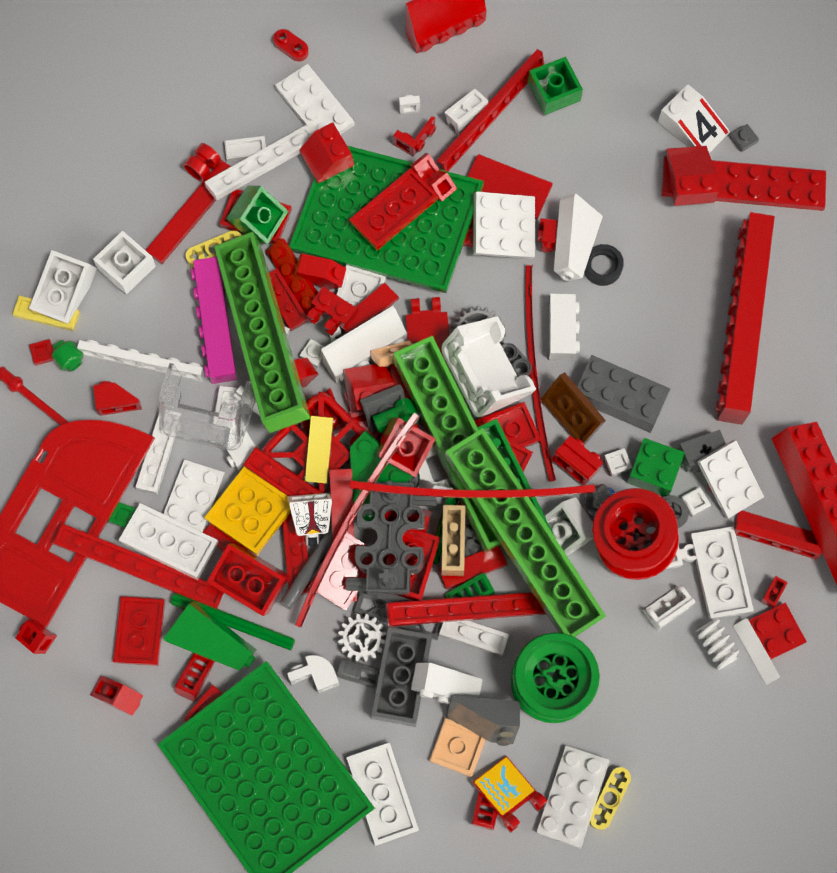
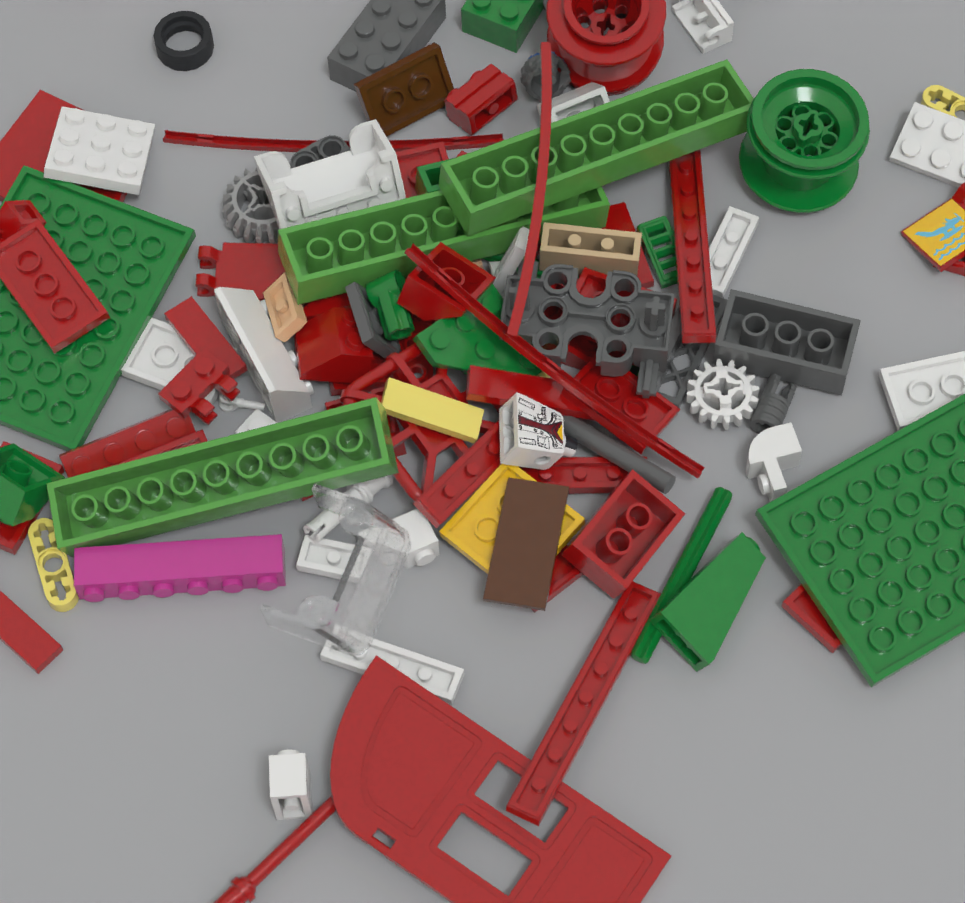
camera: 80 degrees left, 10 degrees down
(22, 311) = (118, 838): light yellow tile -> none
(35, 637) = (701, 867): red brick -> none
(41, 352) = (189, 846): red tile -> none
(62, 286) = (80, 799): white slope -> none
(67, 355) = (205, 799): green head -> none
(72, 399) = (290, 785): none -> white brick
(114, 399) = (293, 724): red slope -> none
(117, 695) = (791, 746): red slope -> none
(122, 515) = (498, 720): green plate -> none
(124, 262) = (55, 696): white brick -> none
(133, 358) = (226, 696): white plate -> none
(139, 631) = (687, 712): red tile -> none
(168, 541) = (549, 652): white plate -> none
(185, 692) = (772, 649): red slope -> none
(194, 494) = (464, 622): white plate -> none
(236, 519) = (526, 544): none -> reddish brown piece
(321, 271) = (130, 398): red slope -> none
(443, 682) = (805, 279): white brick -> none
(457, 748) = (886, 289): light nougat tile -> none
(489, 718) = (855, 231): dark grey slope -> none
(547, 234) = (124, 99): red brick -> none
(563, 327) = (272, 98): white brick -> none
(575, 236) = (139, 61): white slope -> none
(617, 462) = (487, 52): white plate -> none

